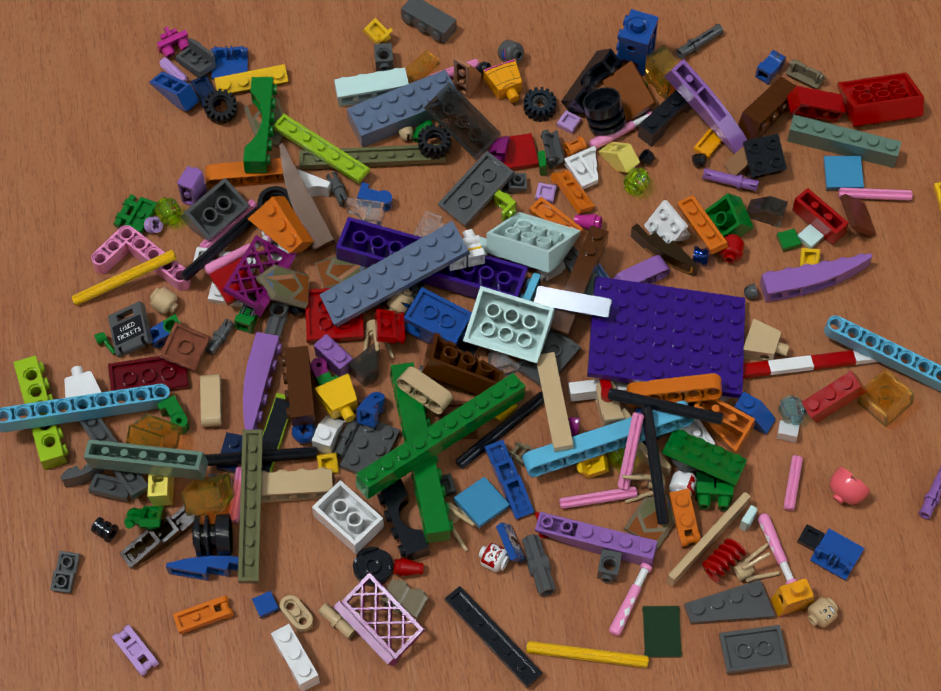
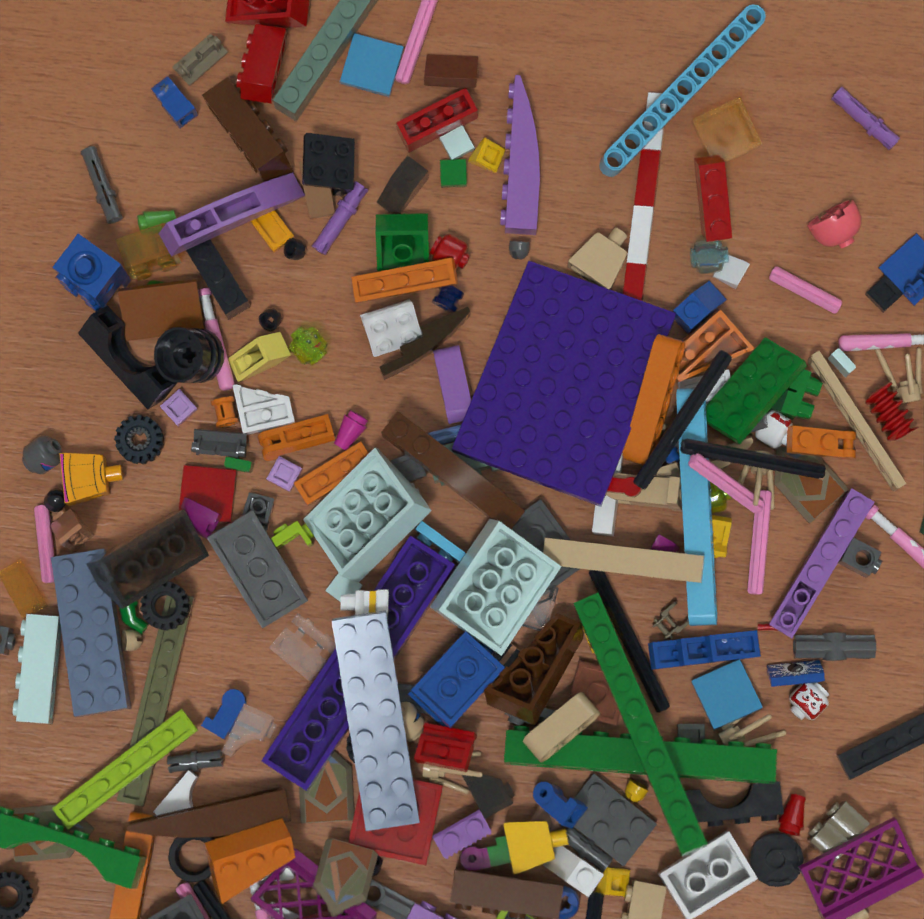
camera: 75 degrees left, 20 degrees up
(574, 302) = (490, 491): tile -> none

